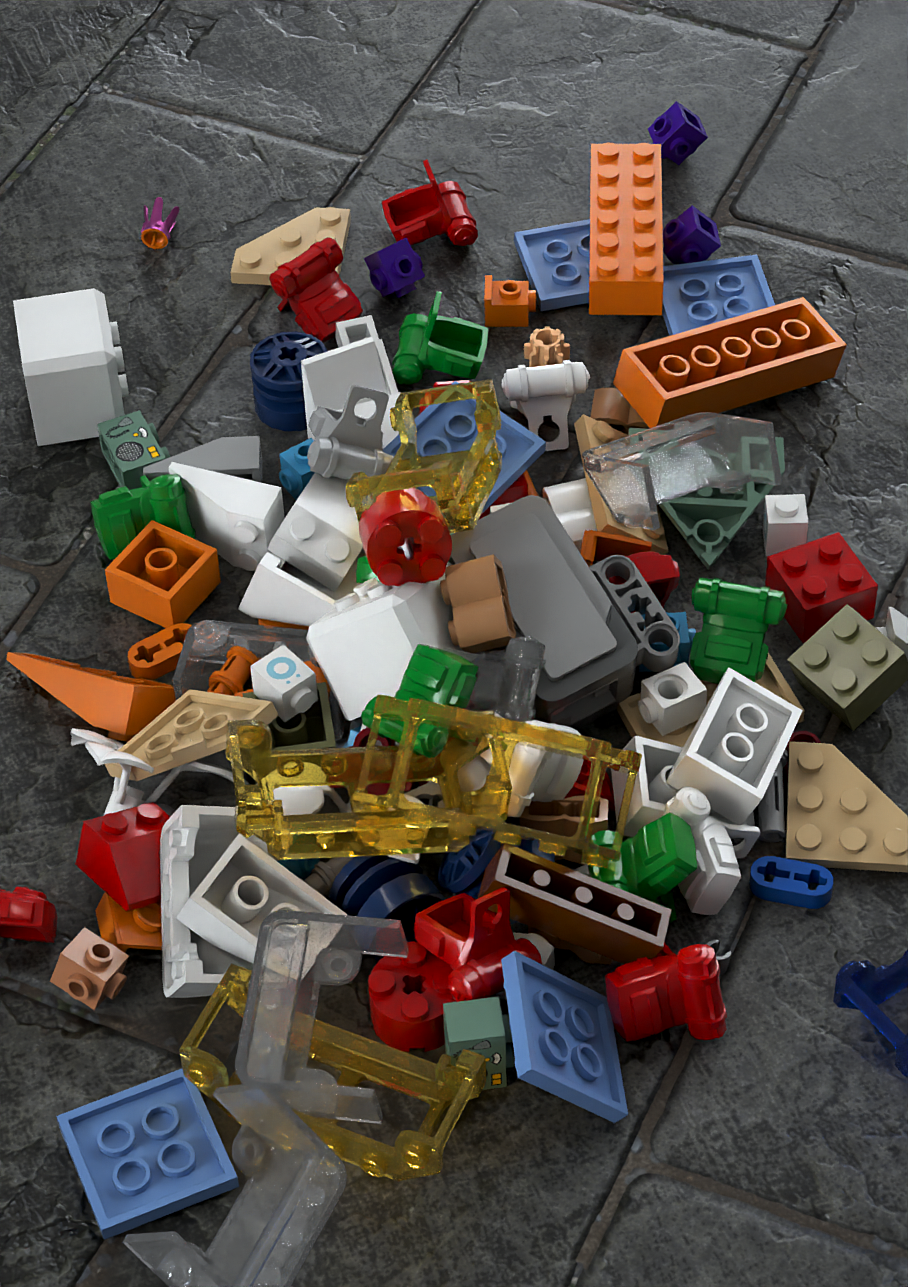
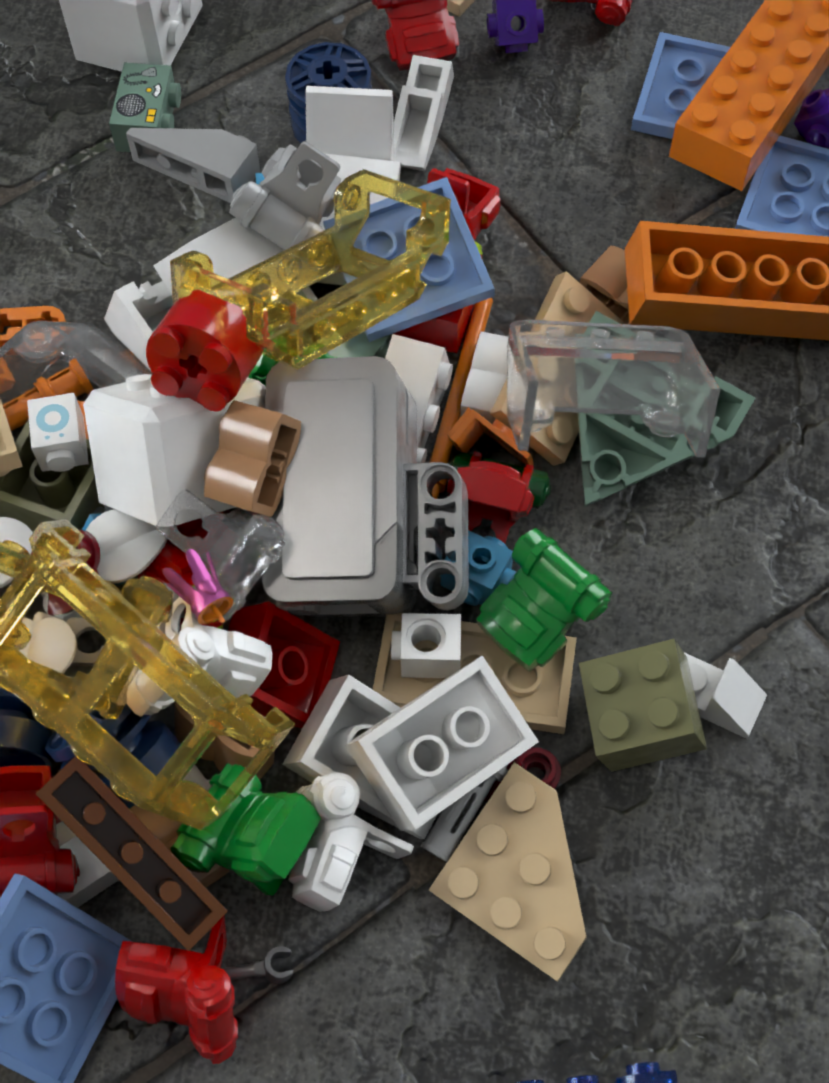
camera: 30 degrees right, 15 degrees up
(125, 512) = (91, 182): green piece -> none
(163, 575) = (69, 250): orange brick -> none
(232, 513) = (168, 208): white slope -> none
(432, 677) = (134, 535): green piece -> none
(439, 345) = (498, 124): green piece -> none
(508, 303) = (600, 106): orange brick -> none
(520, 708) = (210, 599): none -> flat silver piece
(546, 347) = (600, 177): light nougat gear -> none
(546, 392) = (550, 225): white piece -> none
(784, 522) = (698, 495): white brick -> none
(791, 882) = (425, 911): blue beam -> none
(819, 582) = (685, 588): red brick -> none

